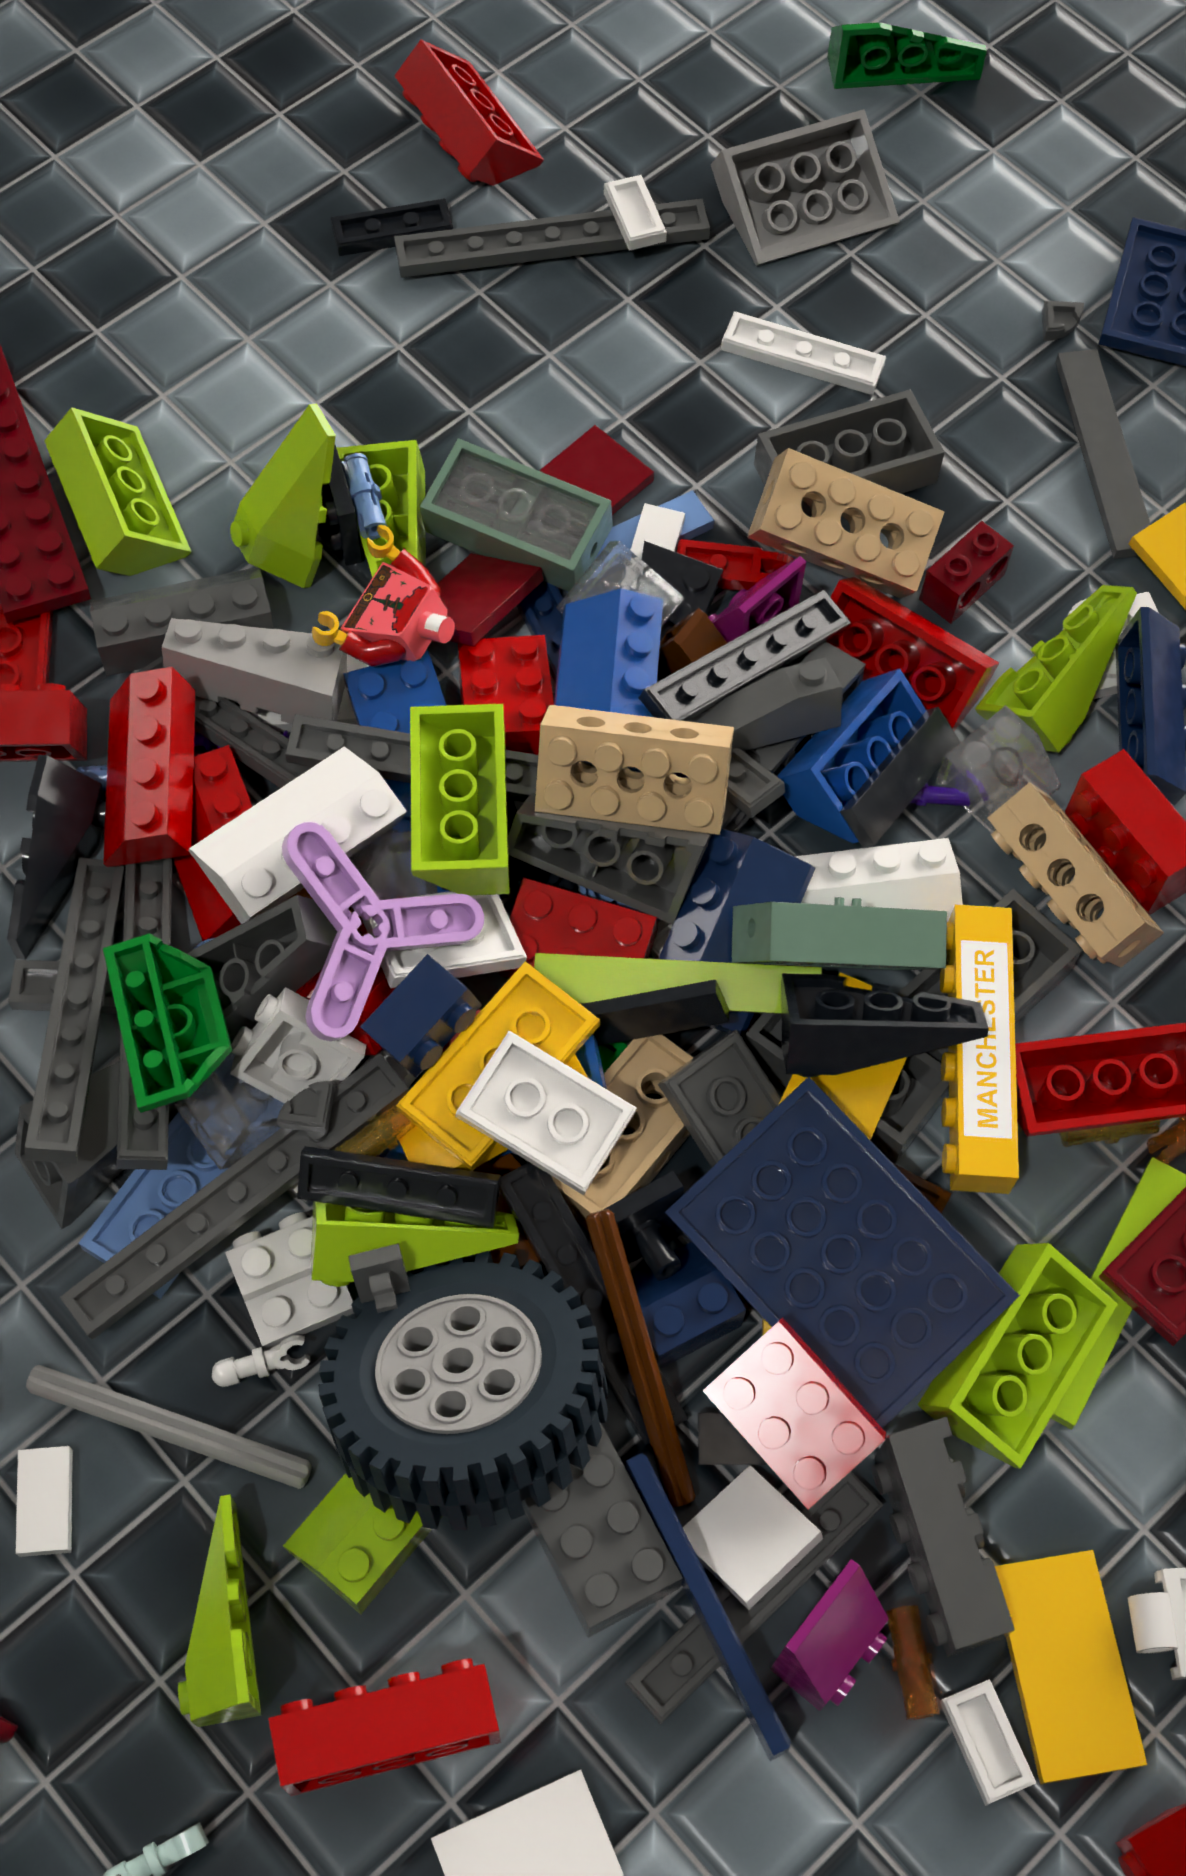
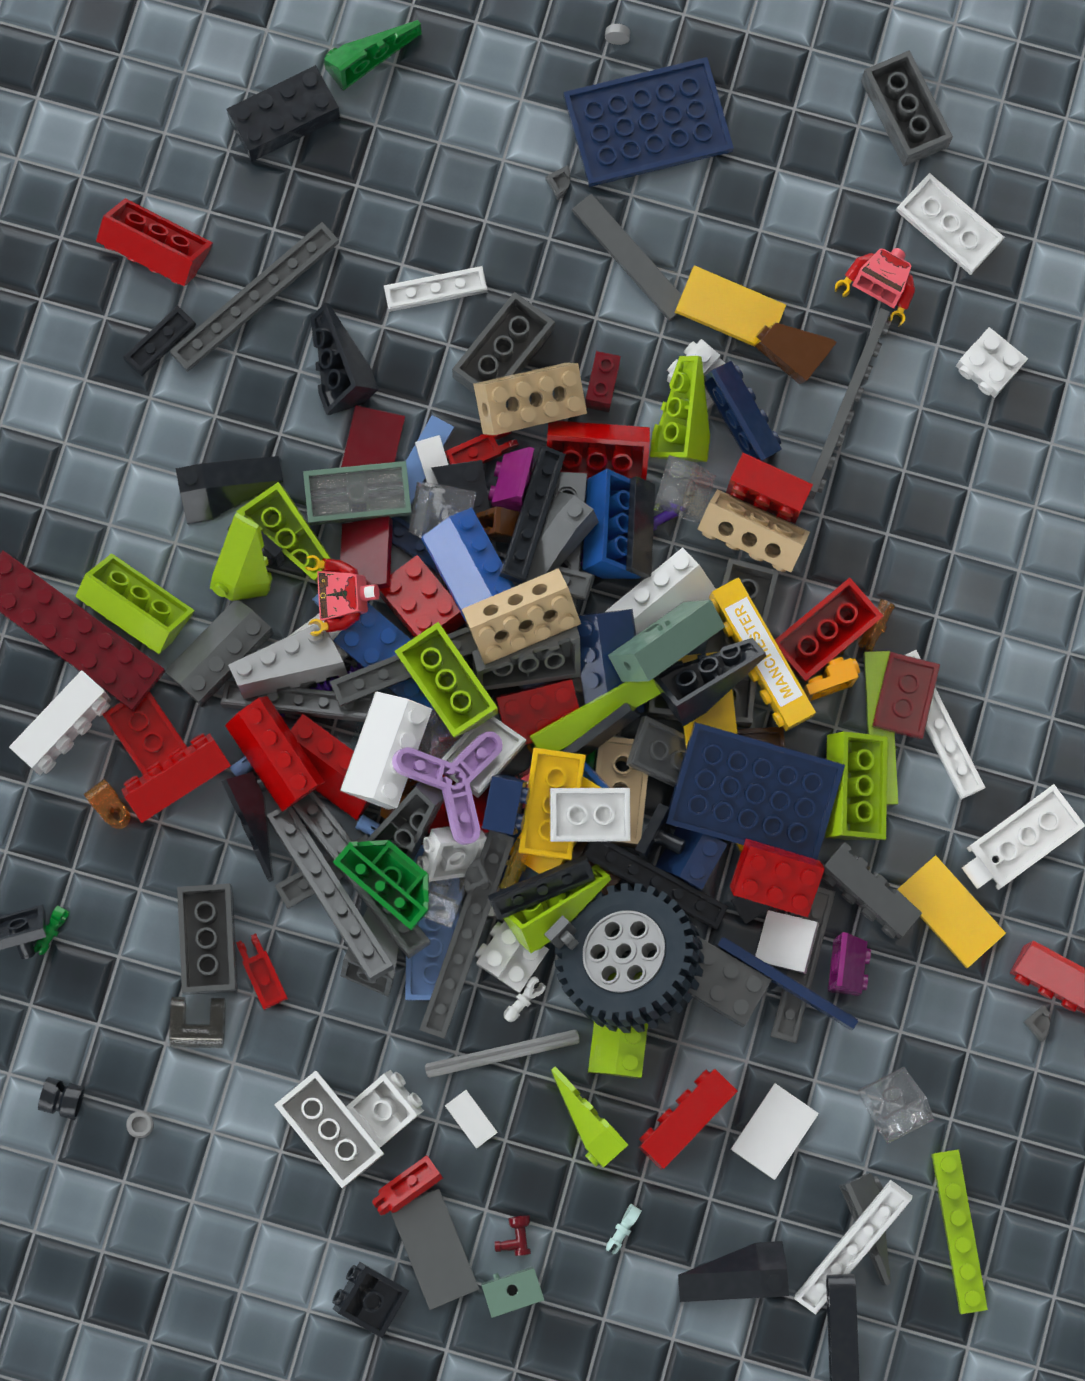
camera: 35 degrees left, 15 degrees up
(350, 409) = (219, 486): none -> black wedge
(364, 495) = (277, 534): medium blue pin -> none
(610, 371) = (343, 369): none -> black wedge
(635, 212) = (292, 256): white tile -> none
(640, 1357) = (694, 895): reddish brown axle -> none
(738, 64) = (283, 113): none -> black brick
(805, 187) = (374, 179): light grey slope -> none
(912, 1663) = (886, 951): clear orange pin -> none
(987, 1742) = (935, 964): white tile -> none
(1075, 1167) = (836, 677): none -> light orange plate

